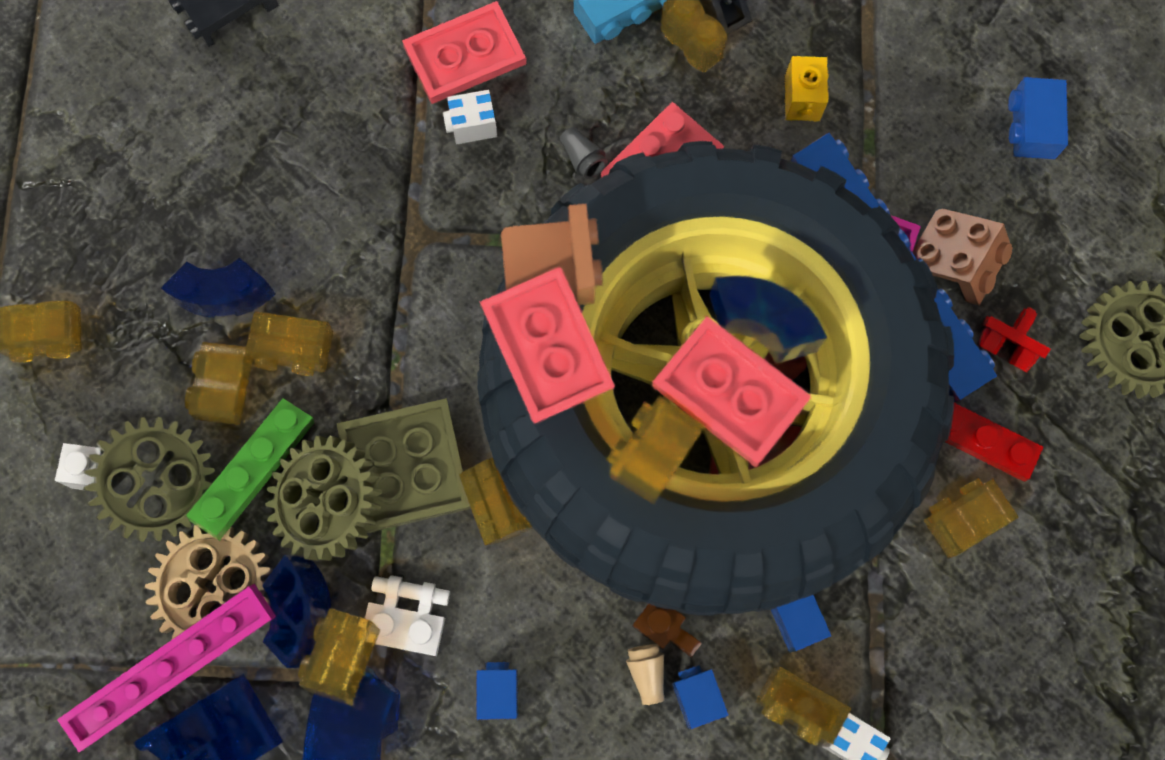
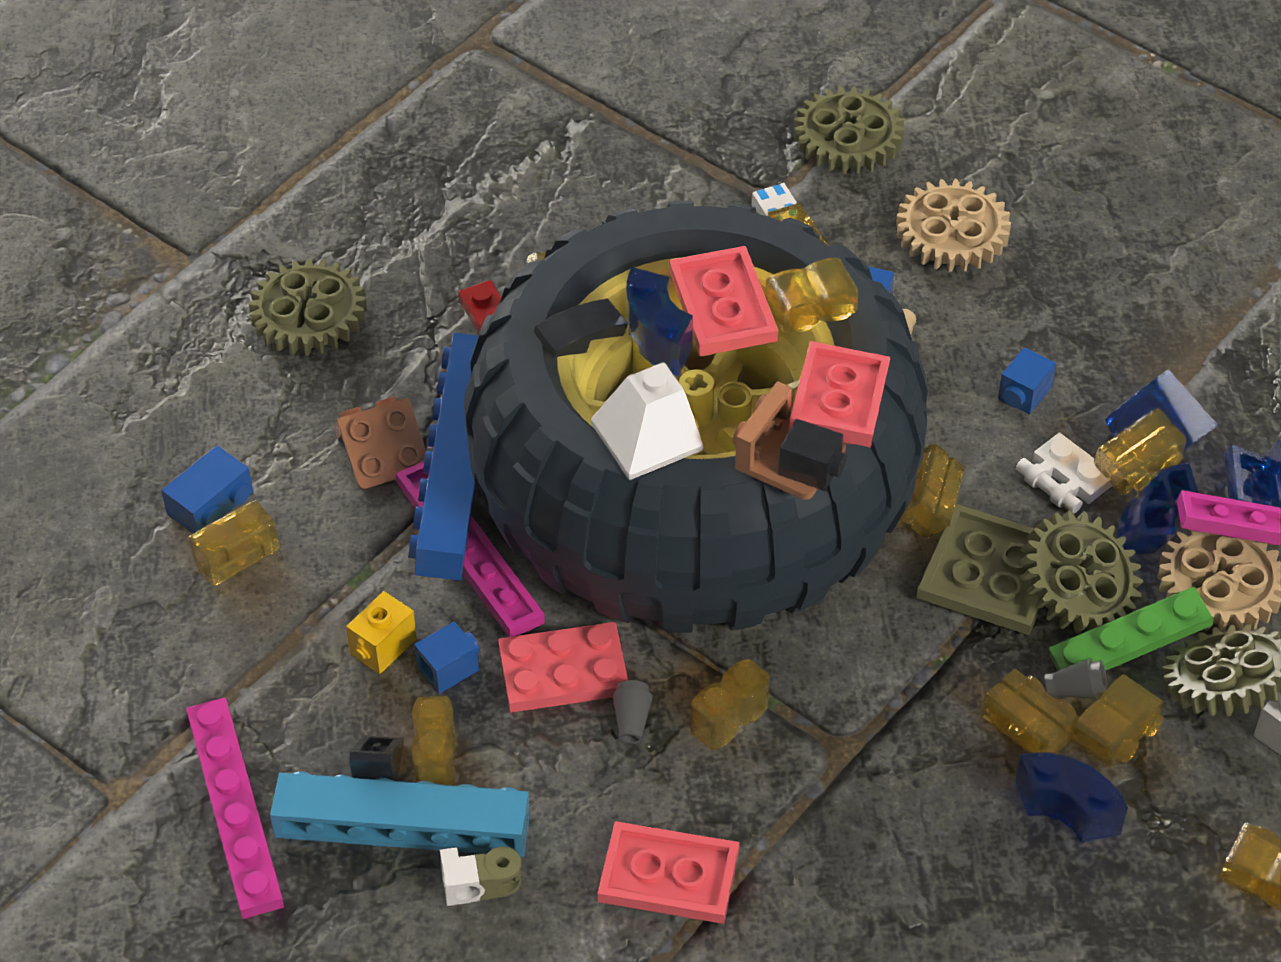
camera: 140 degrees left, 25 degrees down
(265, 392) = (1081, 679): none -> dark grey cone
(470, 117) = (712, 803): white brick -> none
(516, 195) = (729, 704): none -> clear yellow brick
(517, 249) = (811, 455): none -> black brick
(685, 212) = (648, 422): none -> white slope
(745, 104) = (447, 657): none -> blue brick
(828, 272) = (575, 328): none -> black slope
(976, 87) = (234, 542): none -> clear yellow brick
(1027, 349) = (408, 351): red hips -> none

